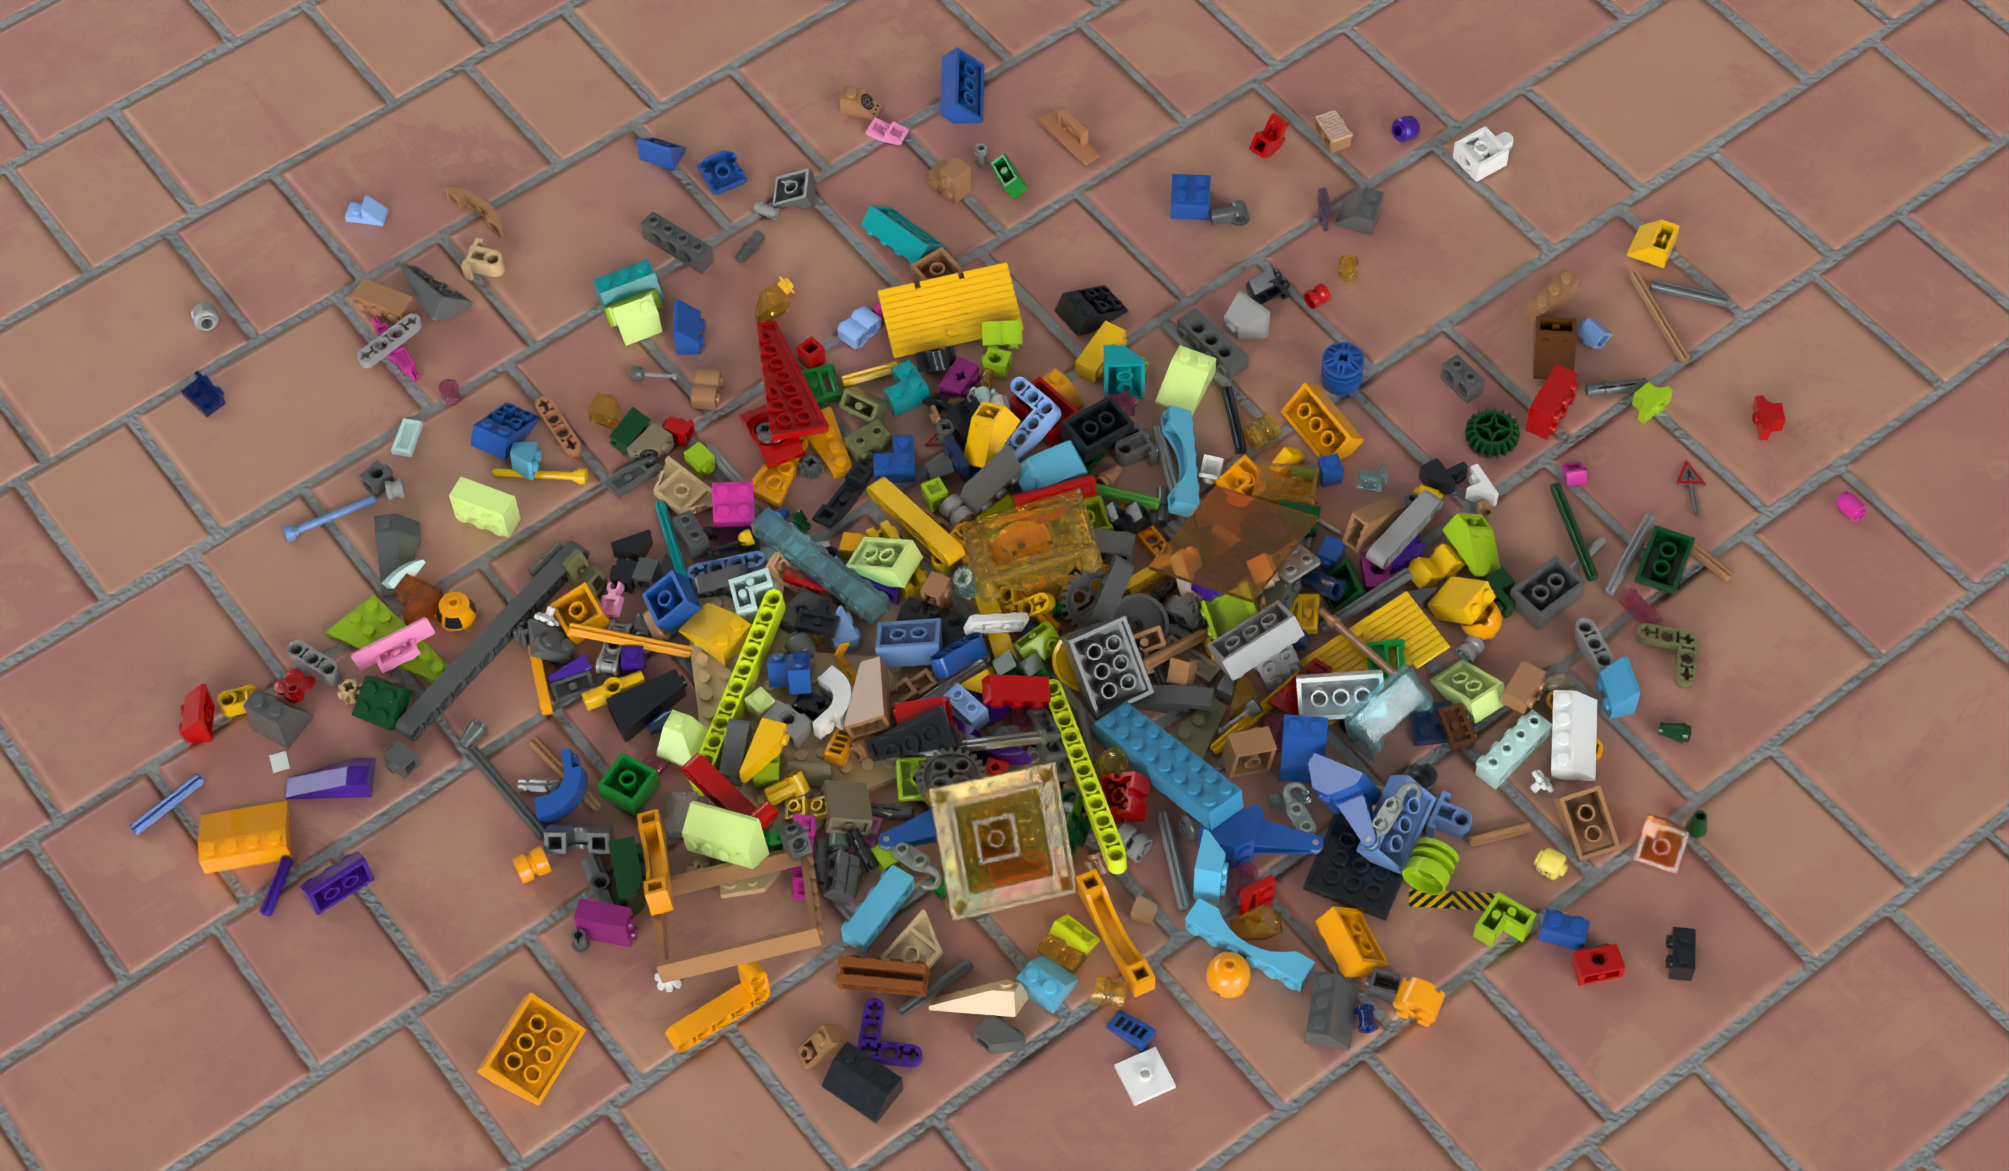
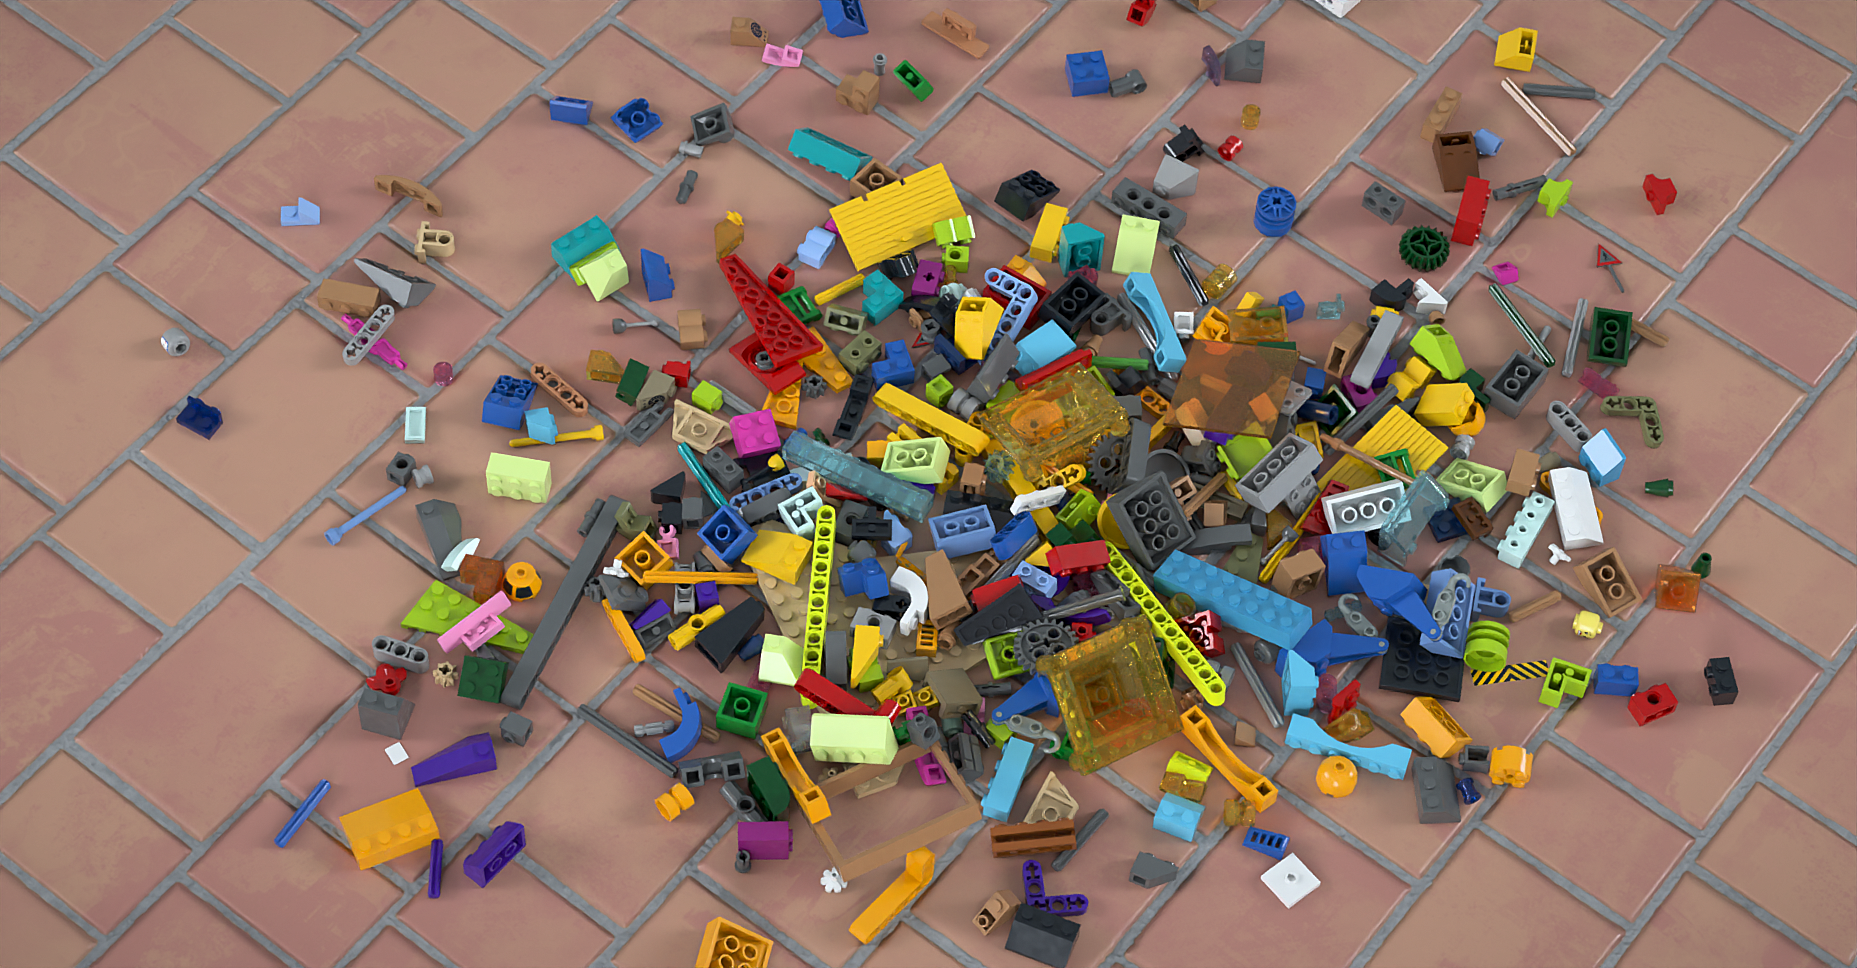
camera: 20 degrees left, 0 degrees up
(197, 716) = (305, 724): red slope -> none
(237, 698) = (342, 701): yellow piece -> none
(473, 733) = (577, 690): dark grey cone -> none
(677, 242) = (616, 194): dark grey brick -> none
(758, 703) = (842, 614): yellowish green brick -> none
(995, 998) = (1136, 839): wedge -> none
(1321, 423) = (1269, 265): light orange slope -> none
(1851, 506) = (1753, 260): dark pink brick -> none

